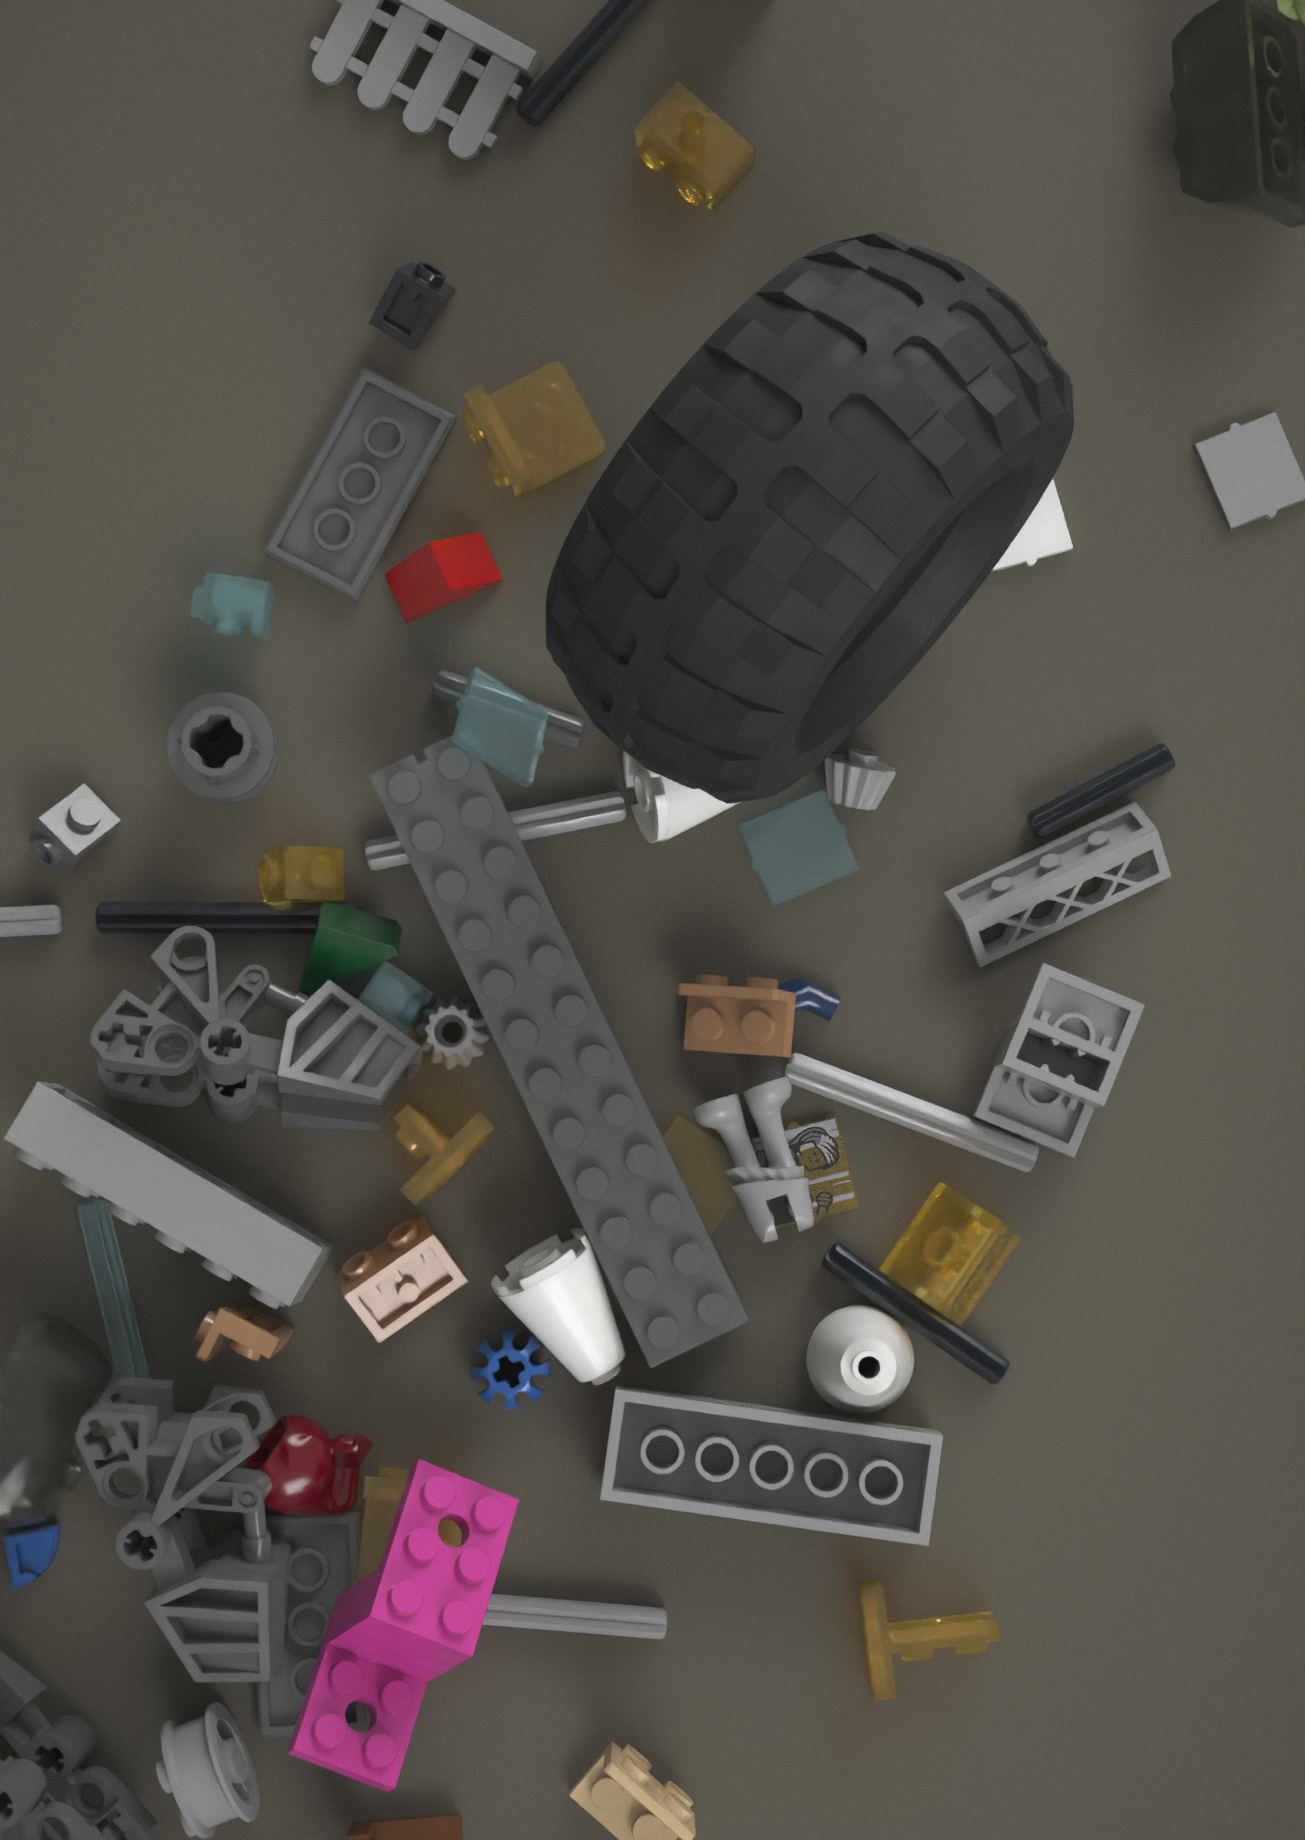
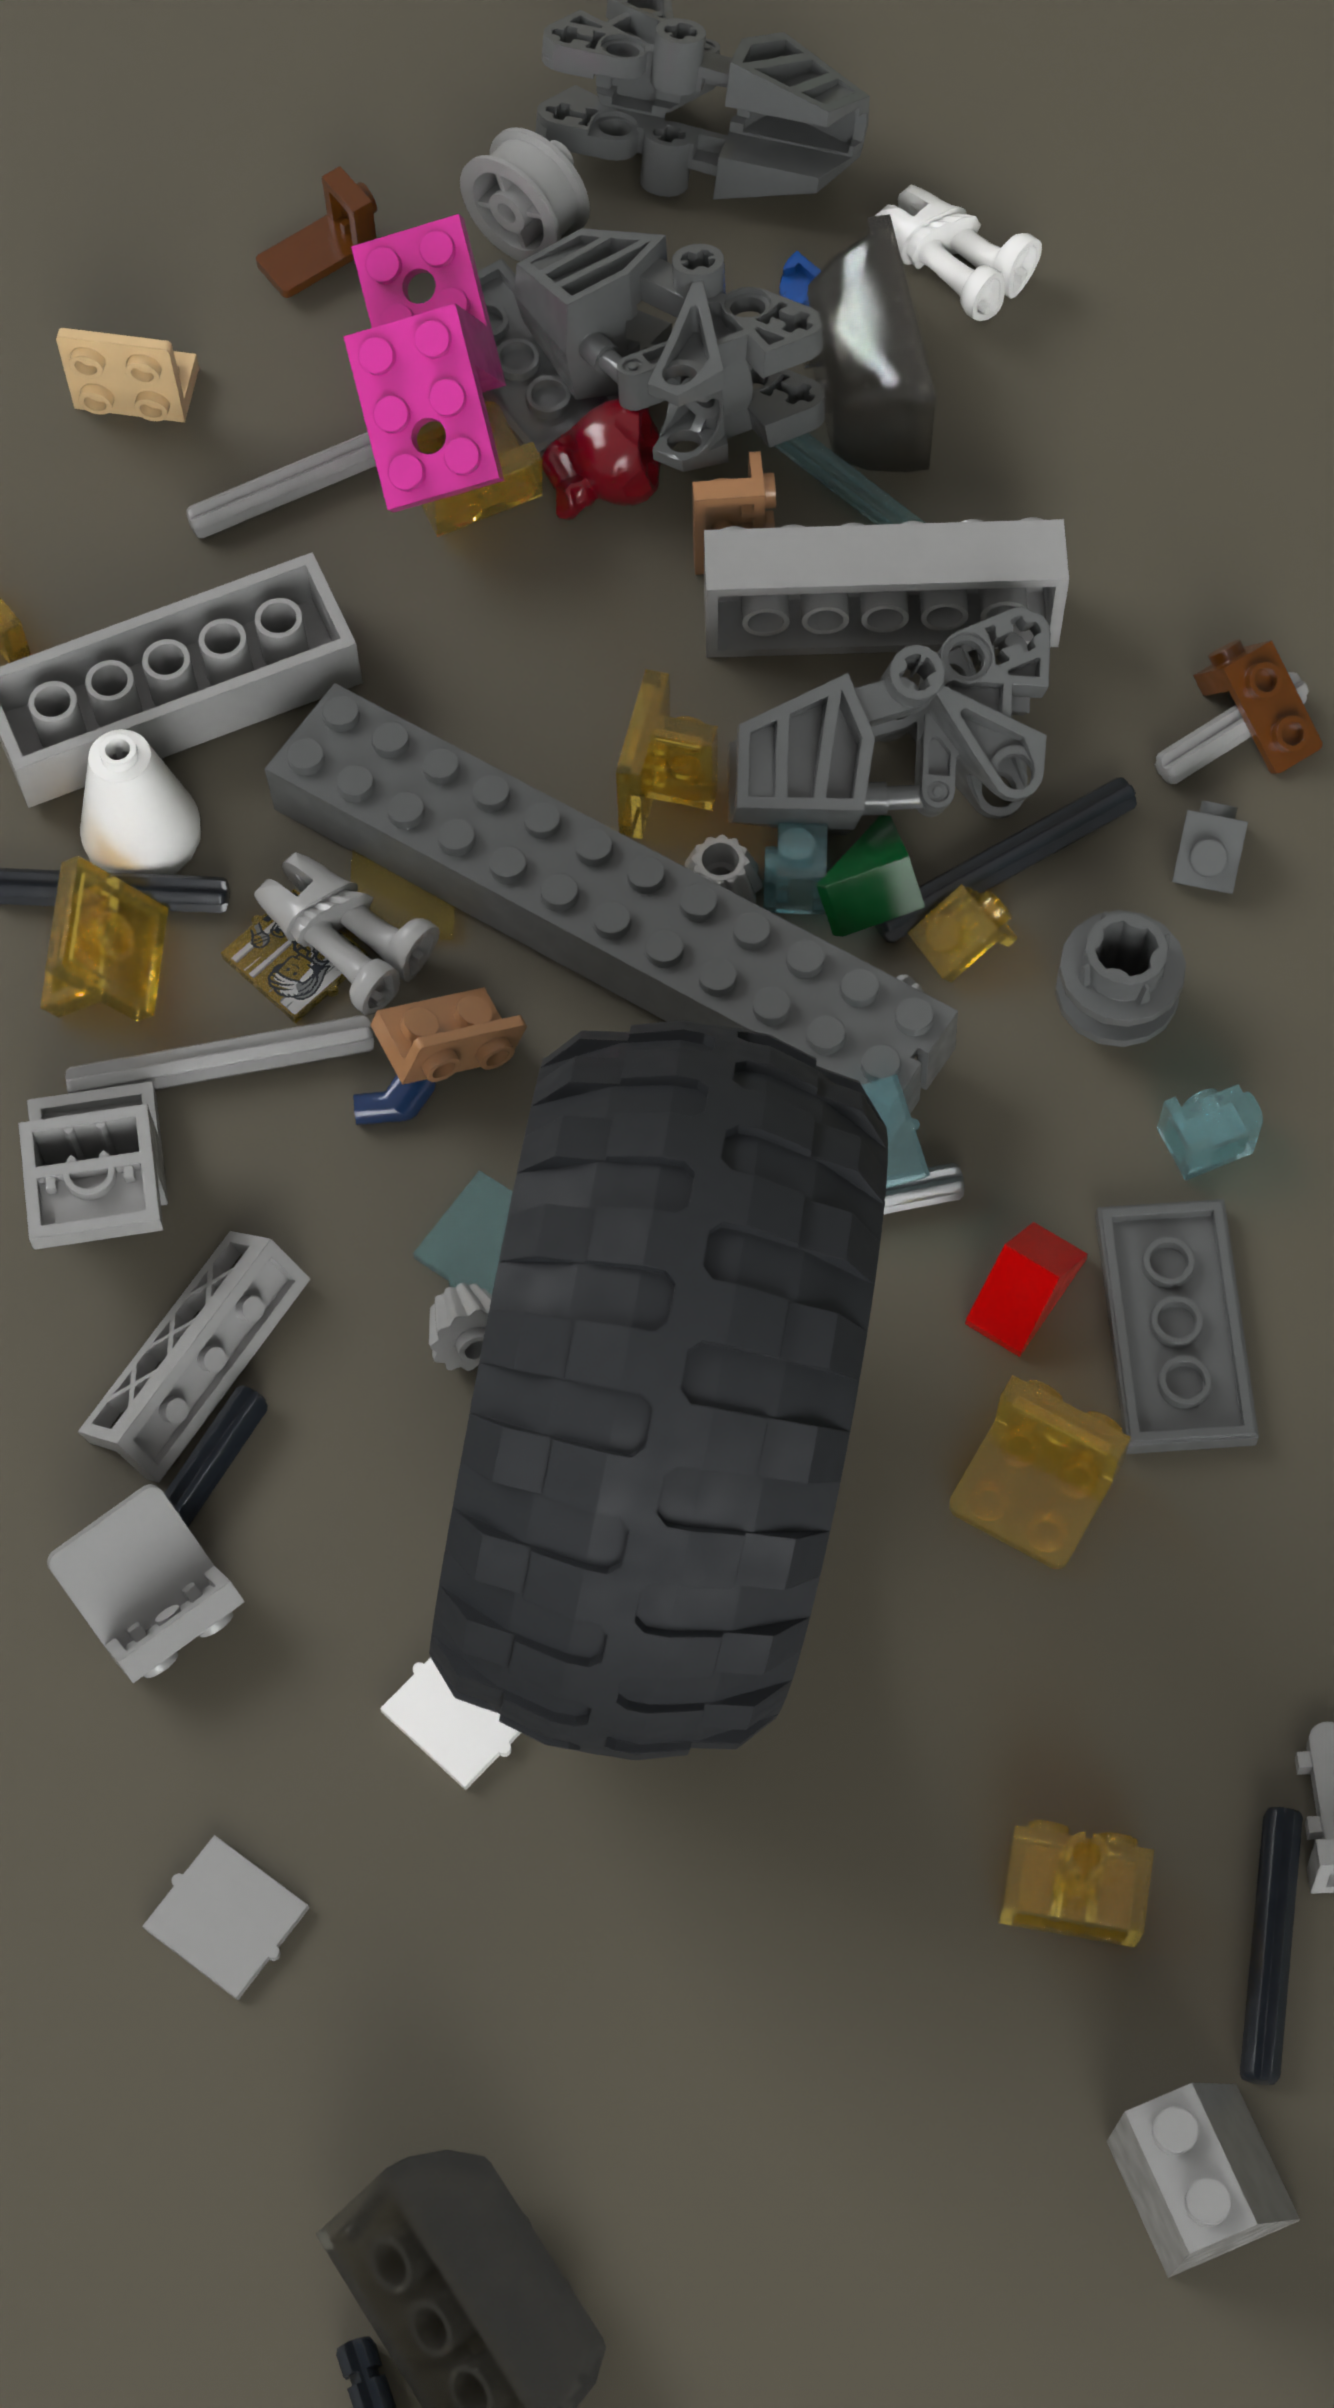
camera: 150 degrees right, 20 degrees down
(399, 1277) = (621, 642): bracket -> none
(412, 303) = (1256, 1534): black bracket -> none
(505, 1384) = (469, 630): blue piece -> none
(565, 1305) = (459, 698): white cone -> none
(1189, 712) = (143, 1583): none -> light grey bracket

